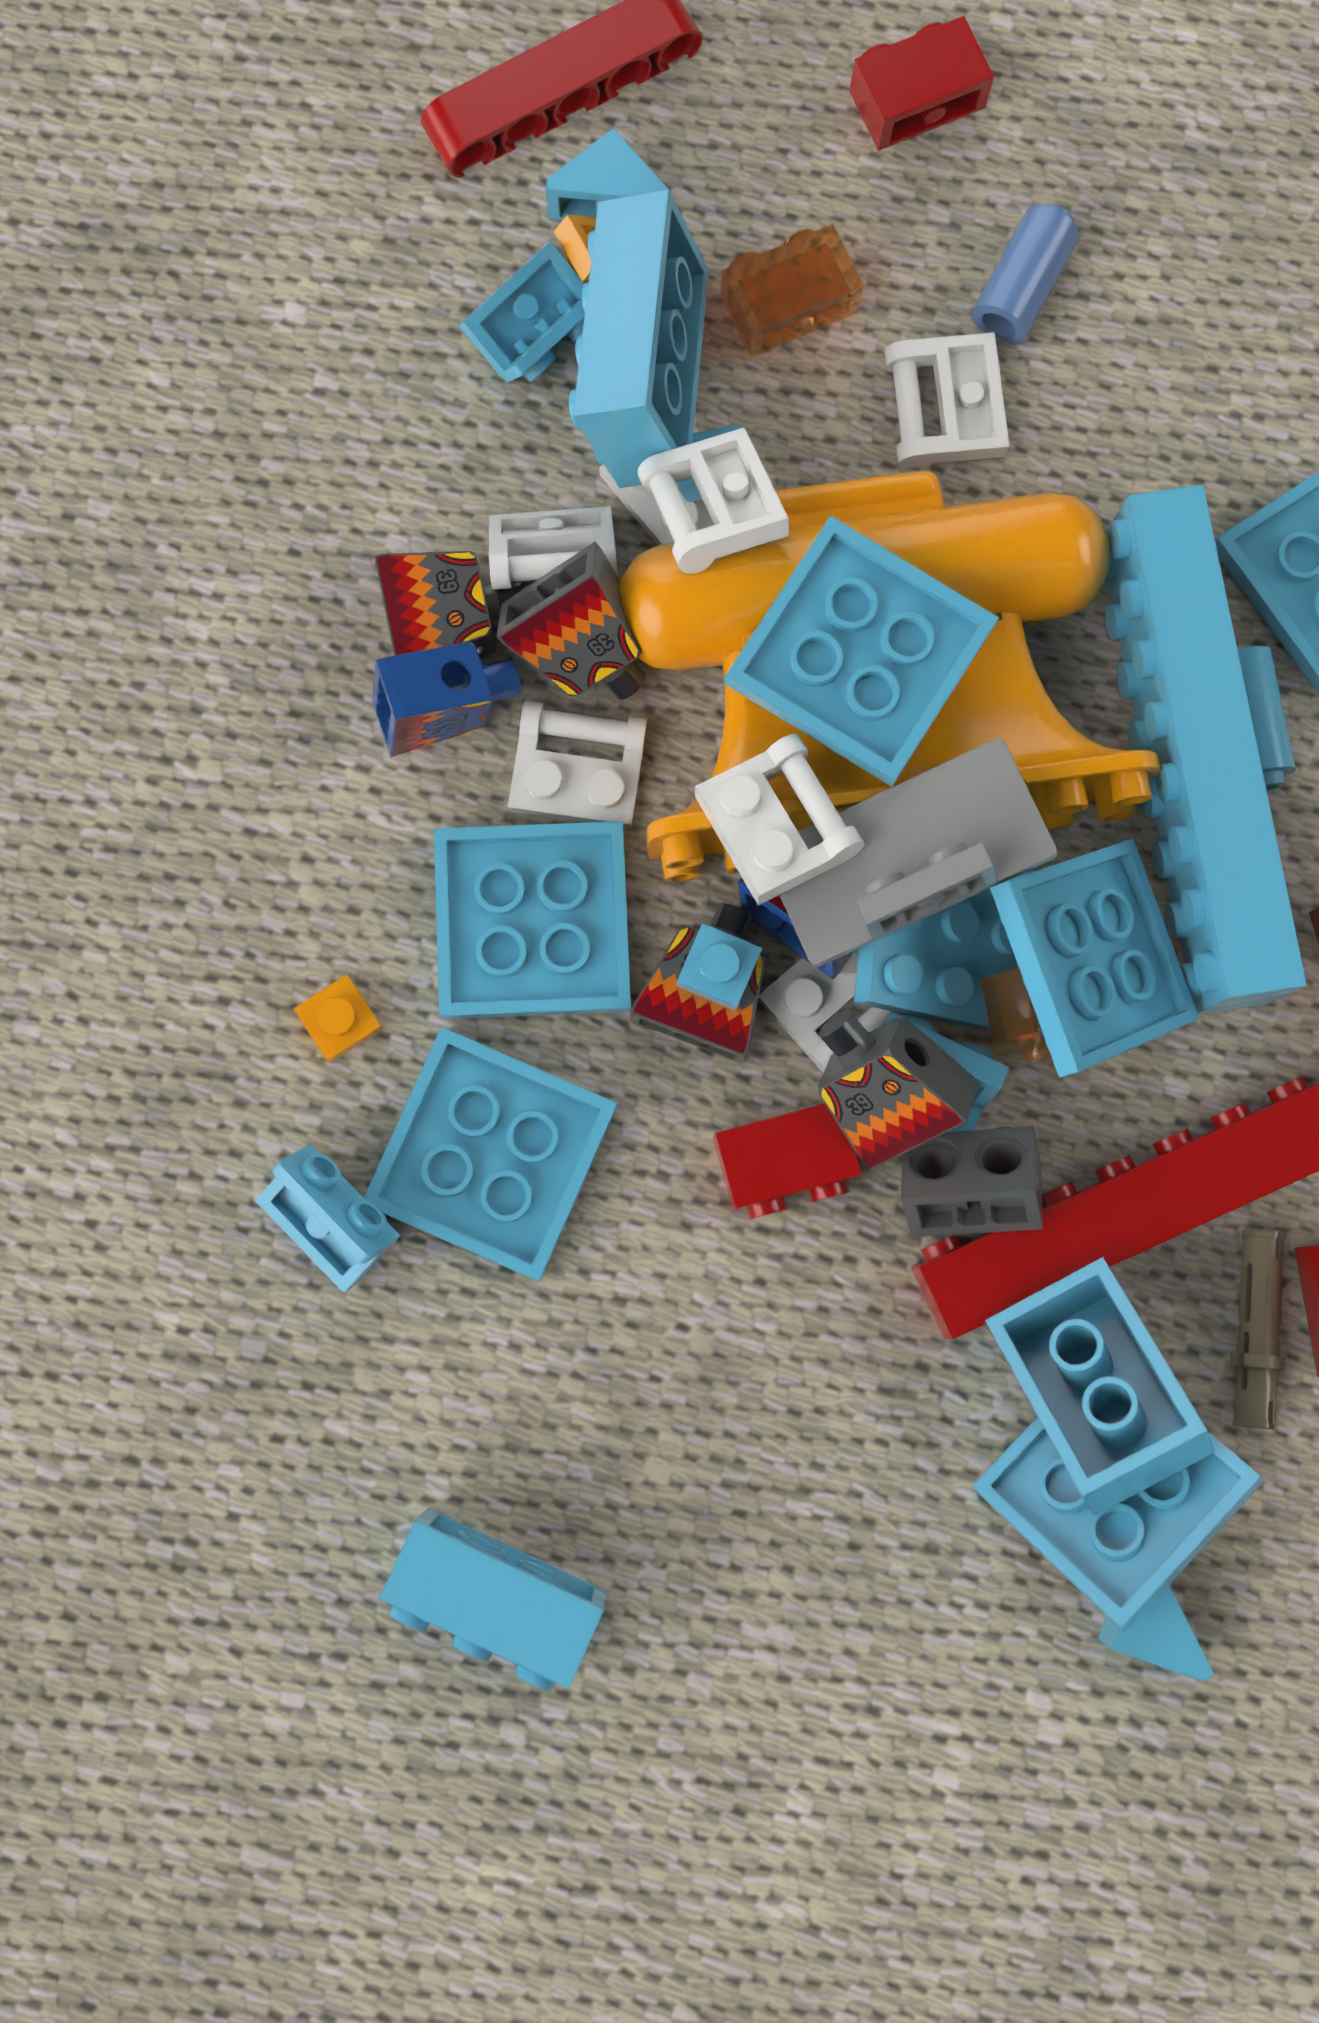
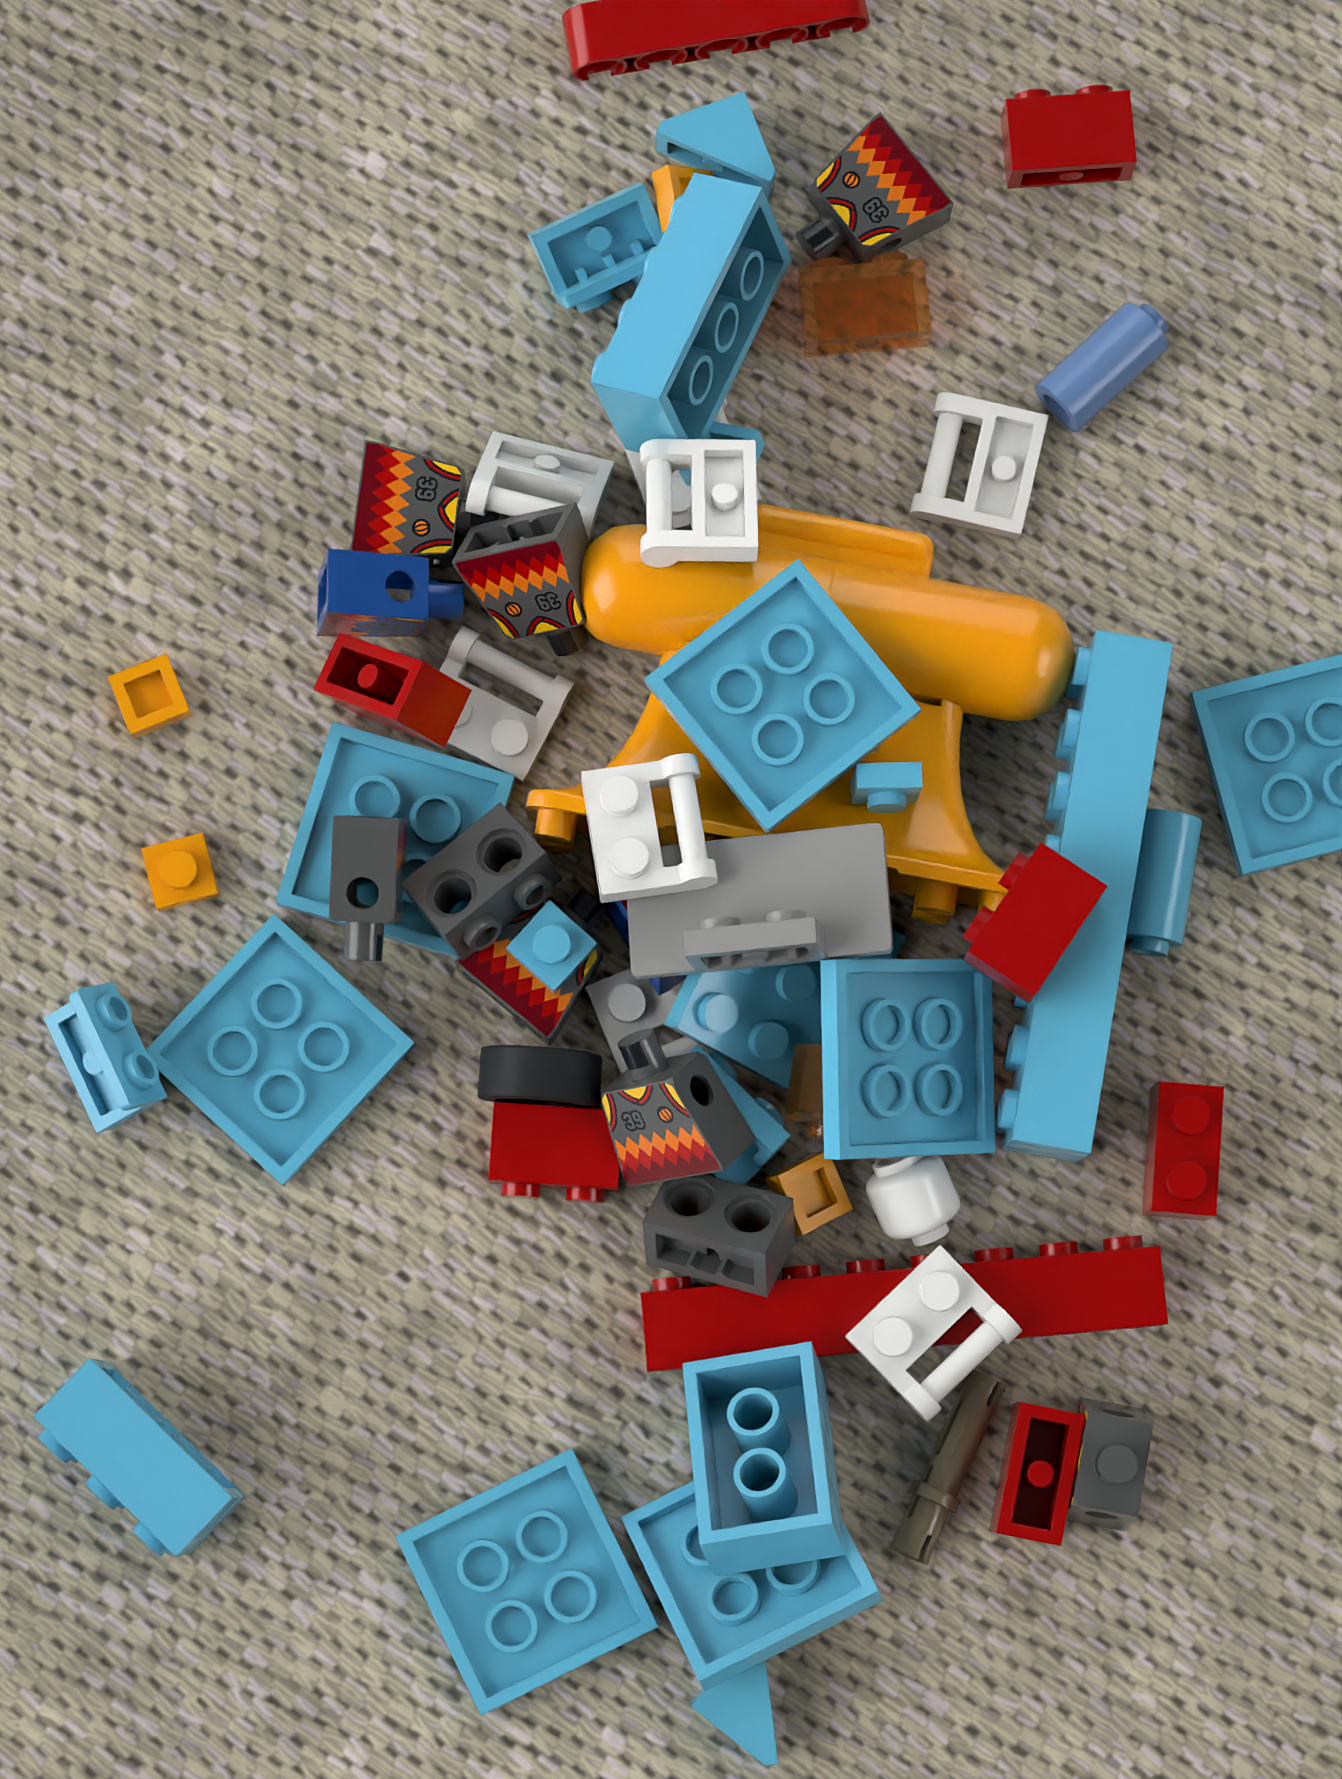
camera: 20 degrees right, 0 degrees up
(252, 863) = (149, 696): none -> light orange plate
(482, 776) = (392, 689): none -> red brick
(517, 931) = (370, 850): none -> dark grey torso
(616, 922) = (471, 871): none -> dark grey brick
(749, 1093) = (540, 1076): none -> black tyre
(764, 189) = (873, 198): none -> torso
(905, 1580) = (526, 1581): none -> medium azure plate
(984, 705) = (886, 785): none -> medium azure plate
(1042, 1106) = (814, 1189): none -> light orange plate
(1137, 1089) = (913, 1197): none -> white head
(1178, 782) = (1033, 922): none -> red brick
(1190, 1199) = (917, 1316): none -> white plate

